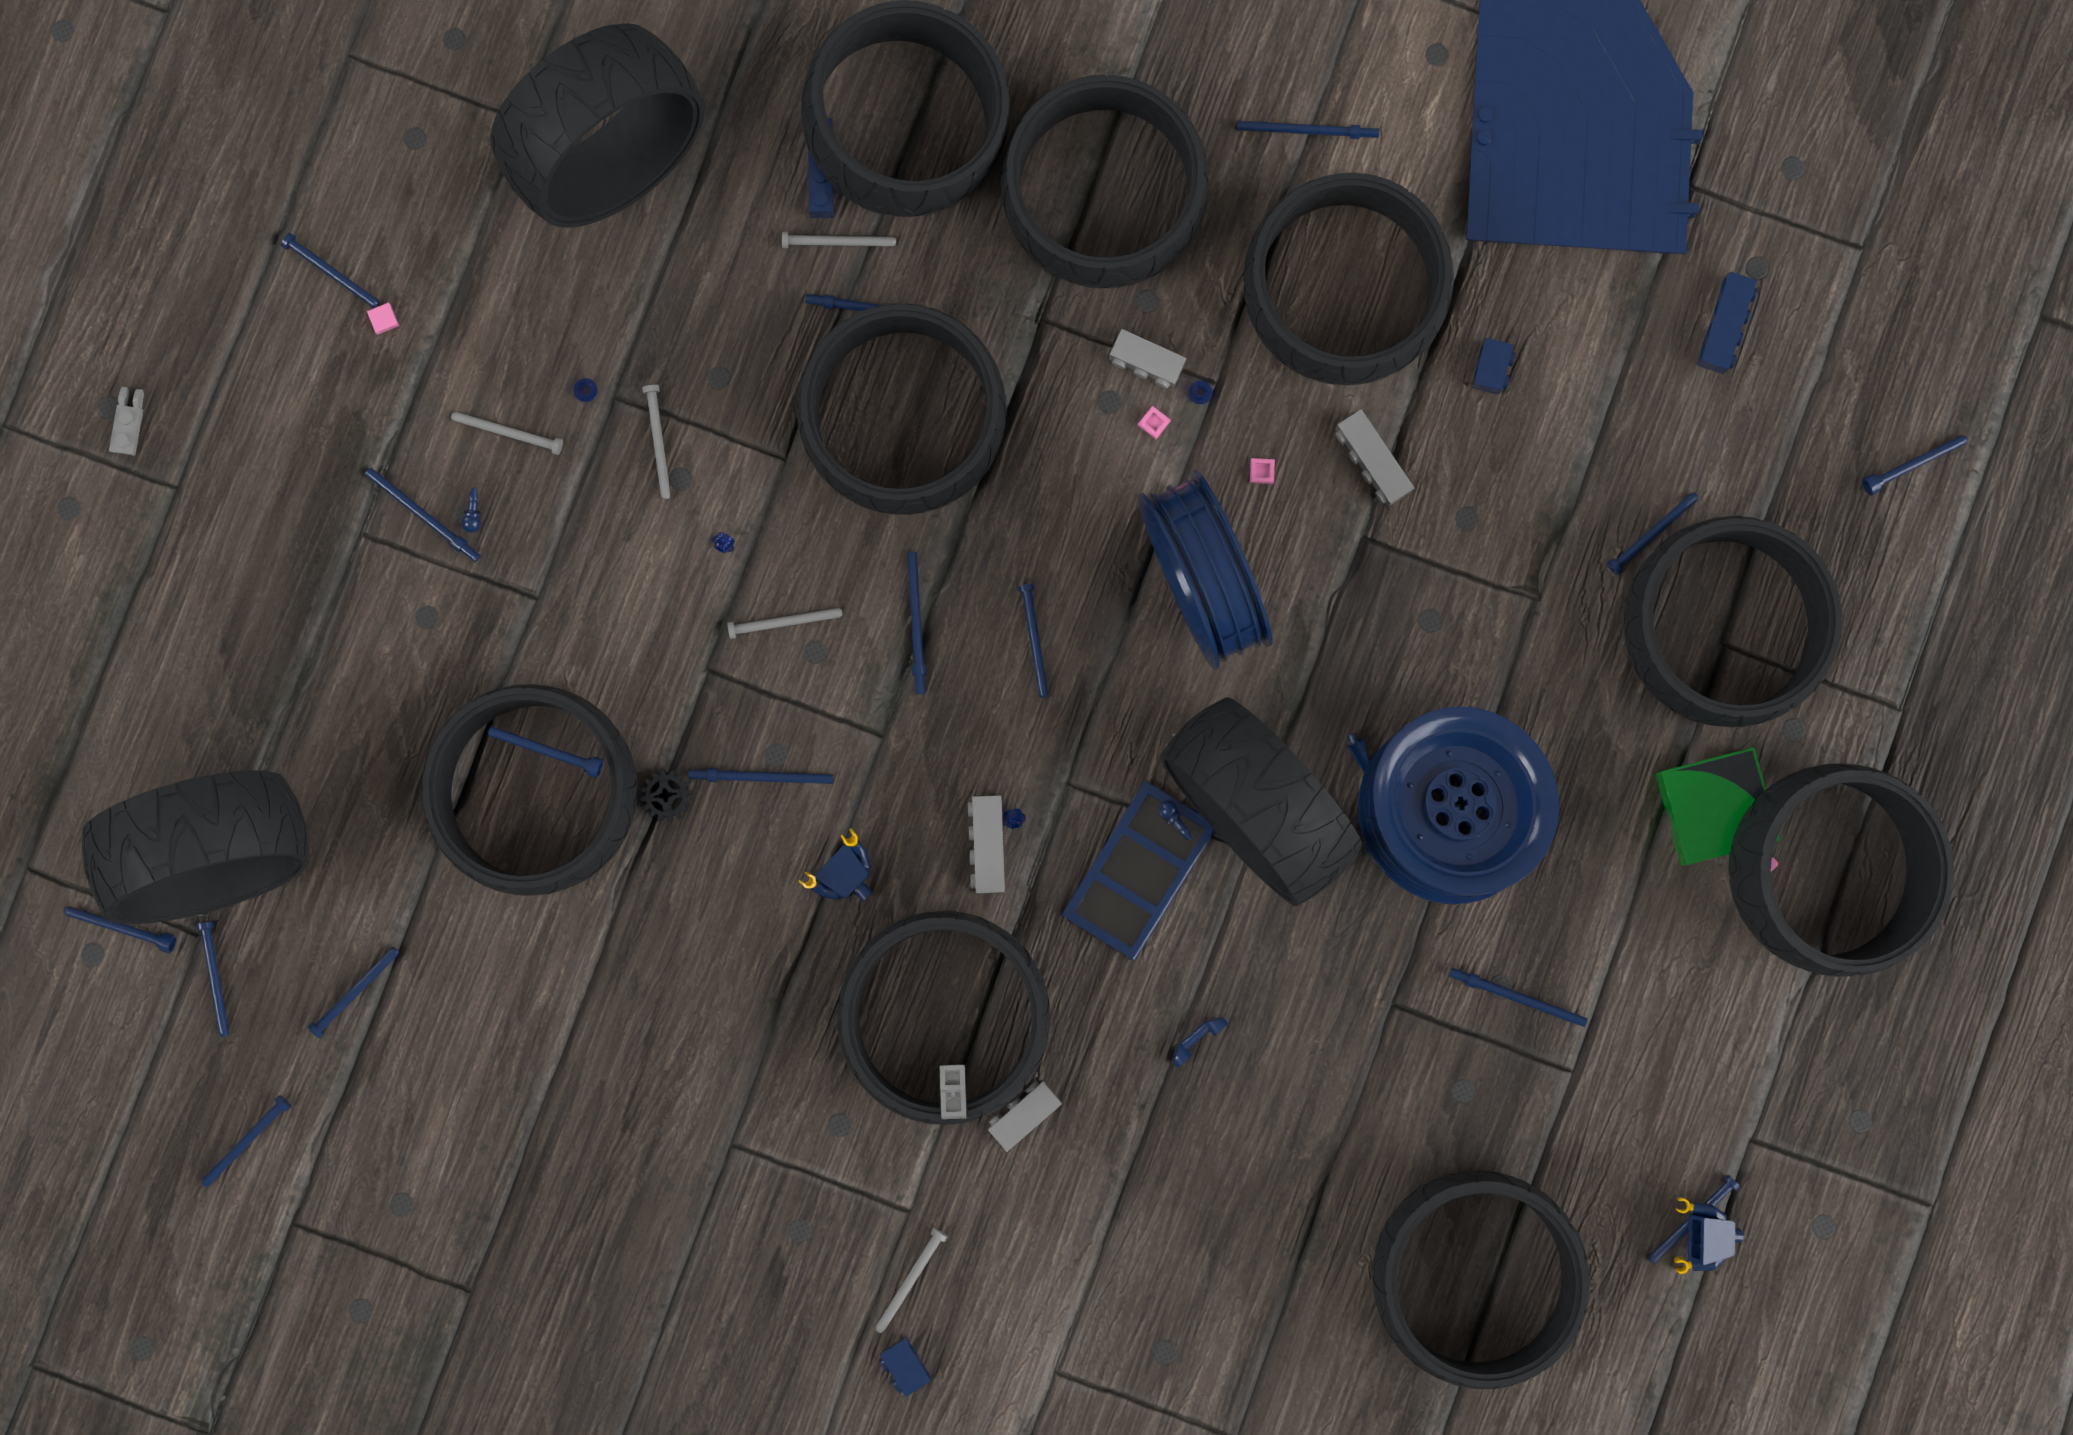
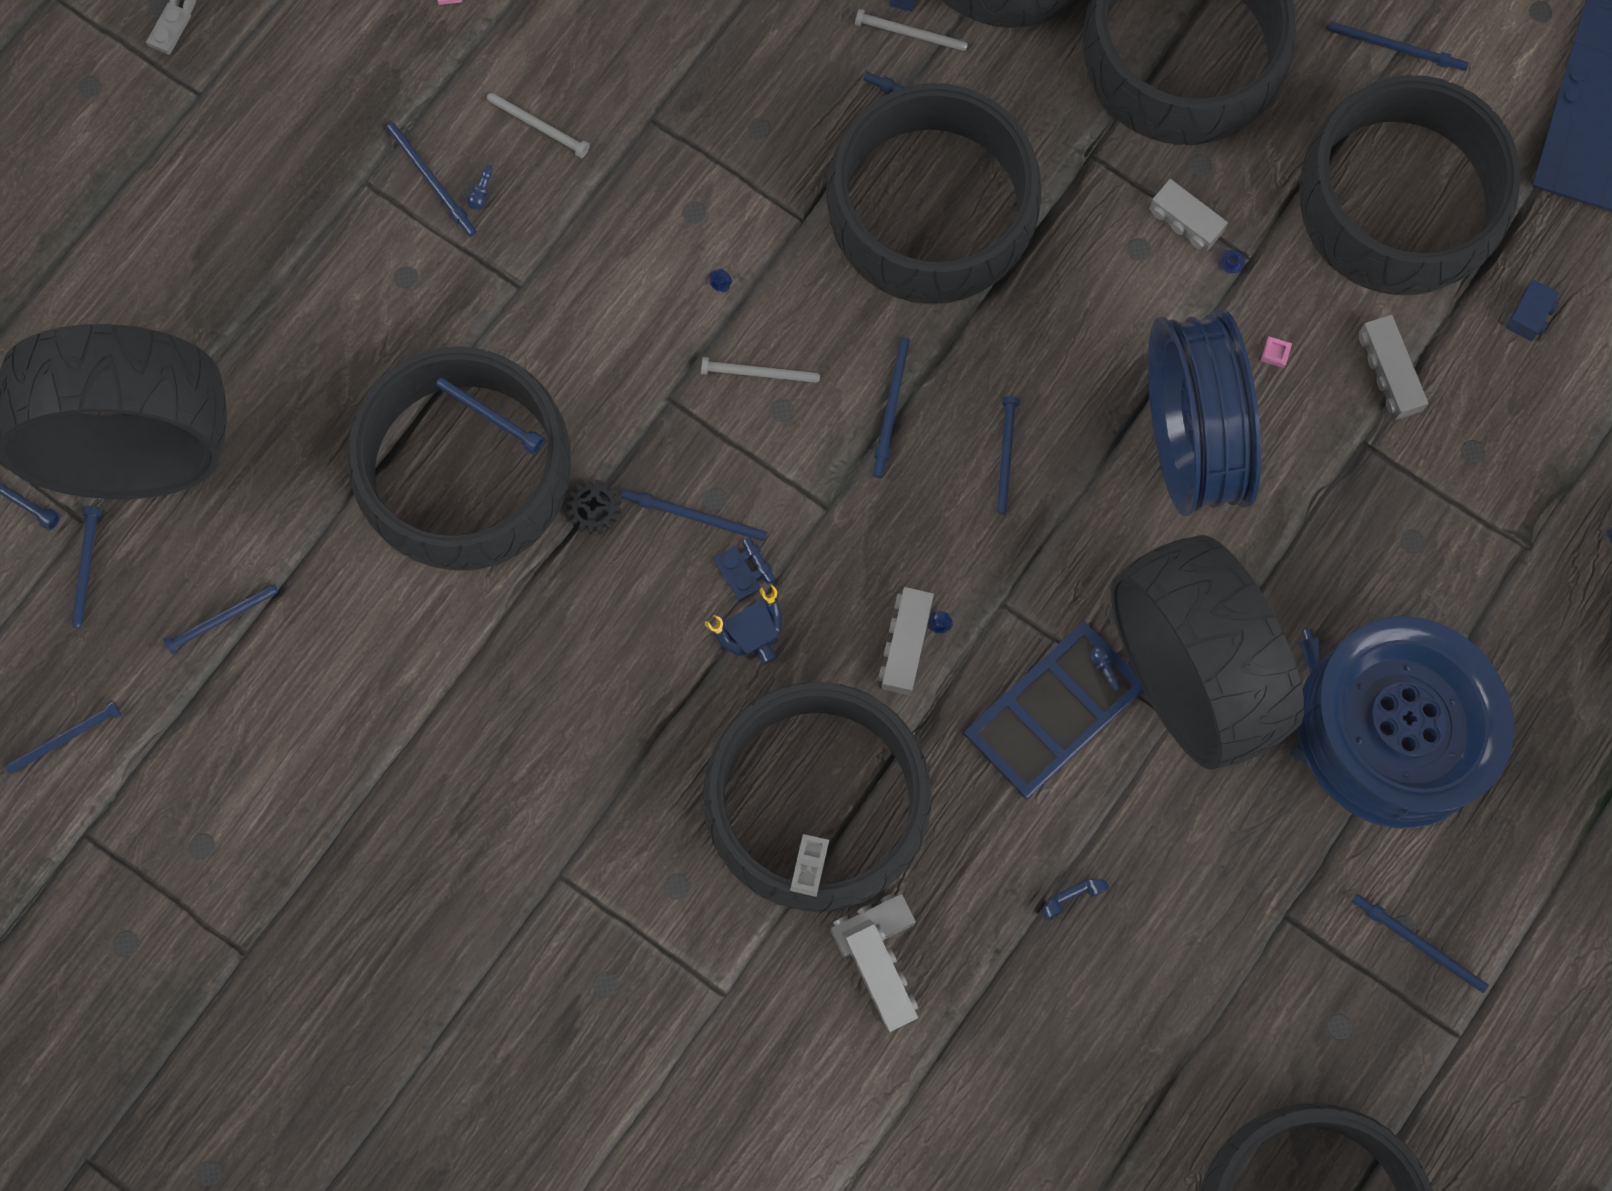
camera: 10 degrees right, 10 degrees down
(585, 383) = (625, 98): clear blue plate -> none
(651, 391) = (689, 122): light grey bar -> none
(816, 821) = (737, 573): none -> dark blue plate
(905, 1367) = (677, 1156): dark blue brick -> none
(937, 1237) = (707, 1066): light grey bar -> none
(1042, 1161) = (880, 975): none -> light grey brick
(1154, 422) = (1179, 279): bright pink tile -> none

